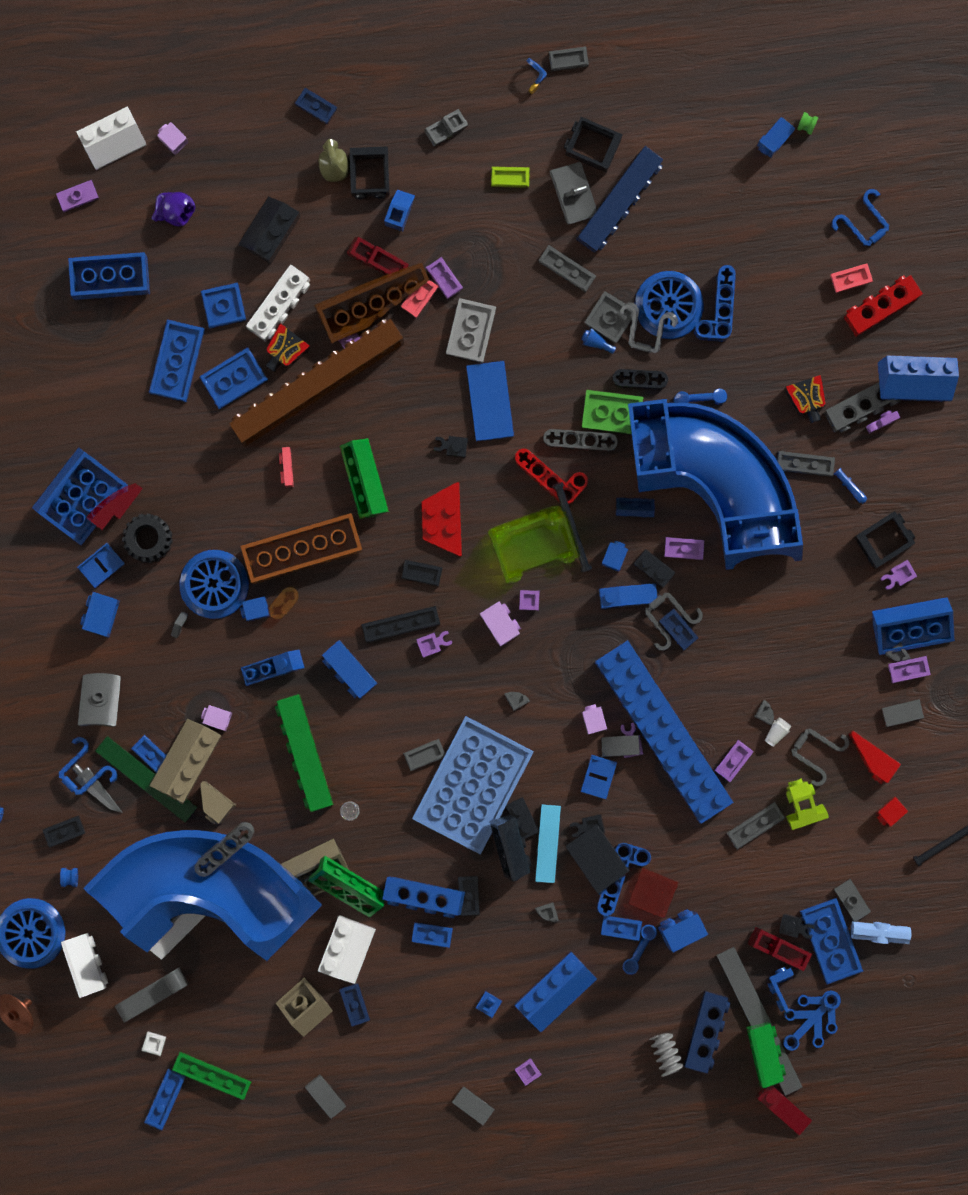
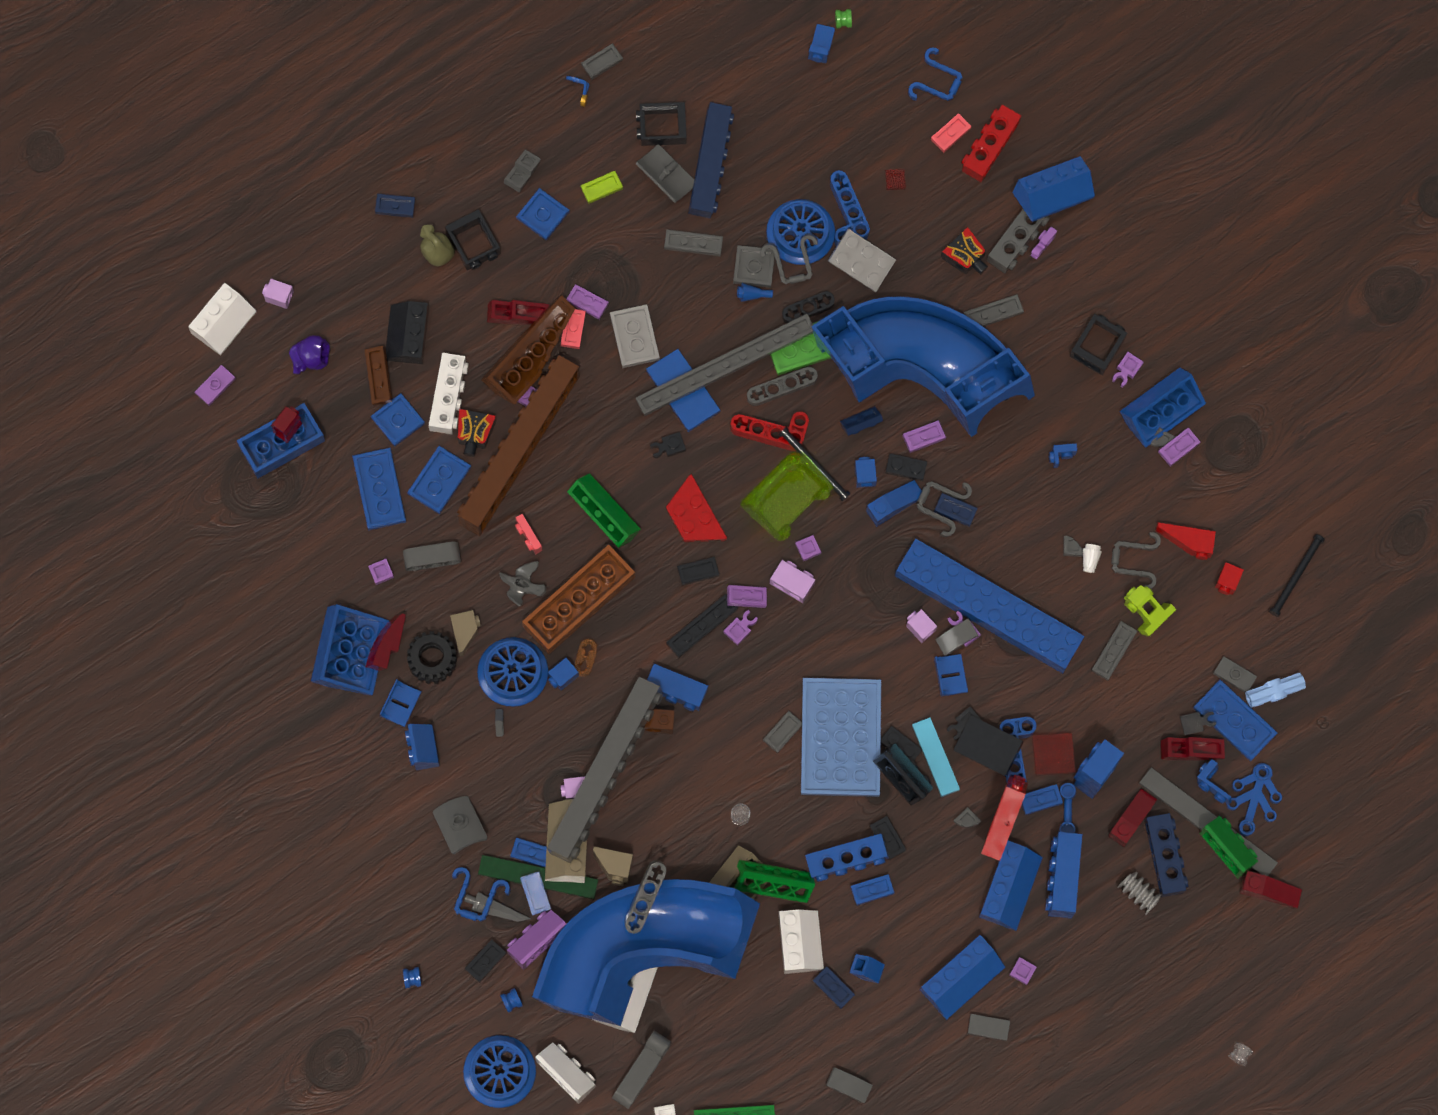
camera: 30 degrees left, 10 degrees down
(116, 834) = (535, 939): none -> medium lavender slope
(117, 266) = (286, 424): none -> dark red brick
(136, 793) = (535, 893): none -> tile
(141, 438) = (381, 571): none -> medium lavender plate
(188, 527) = (465, 629): none -> dark tan slope
(192, 445) = (431, 556): none -> dark grey beam
(225, 257) = (378, 375): none -> reddish brown plate
(246, 717) = (604, 770): none -> dark grey brick
(259, 509) = (521, 584): none -> dark grey animal
(272, 667) = (602, 720): blue slope -> none
(304, 1007) = (788, 1012): dark tan slope -> none
(305, 754) = (675, 785): green brick -> none
(314, 690) = (661, 722): none -> reddish brown brick
(391, 1003) = (867, 968): none -> blue brick
(399, 210) = (517, 261): blue slope -> none
(445, 177) = (542, 214): none -> blue tile
(452, 617) = (746, 596): none -> medium lavender plate
(472, 1051) = (962, 977): none -> blue slope
(488, 1004) = (955, 928): blue tile -> none
(516, 699) = (841, 642): dark grey tile -> none
(537, 397) = (725, 365): none -> dark grey plate
(576, 935) = (1005, 817): none -> piece
(606, 1007) = (1065, 875): none -> blue brick
(694, 983) = (1132, 818): none -> dark red slope
(709, 359) = (861, 260): none -> light grey plate
(719, 397) = (886, 290): blue bar -> none
(734, 761) = (1065, 602): medium lavender plate -> none
(779, 297) = (895, 179): none -> clear red tile
(804, 624) = (1064, 451): none -> blue bracket
(856, 492) = (1056, 317): blue piece -> none
(902, 713) = (1193, 488): dark grey tile -> none

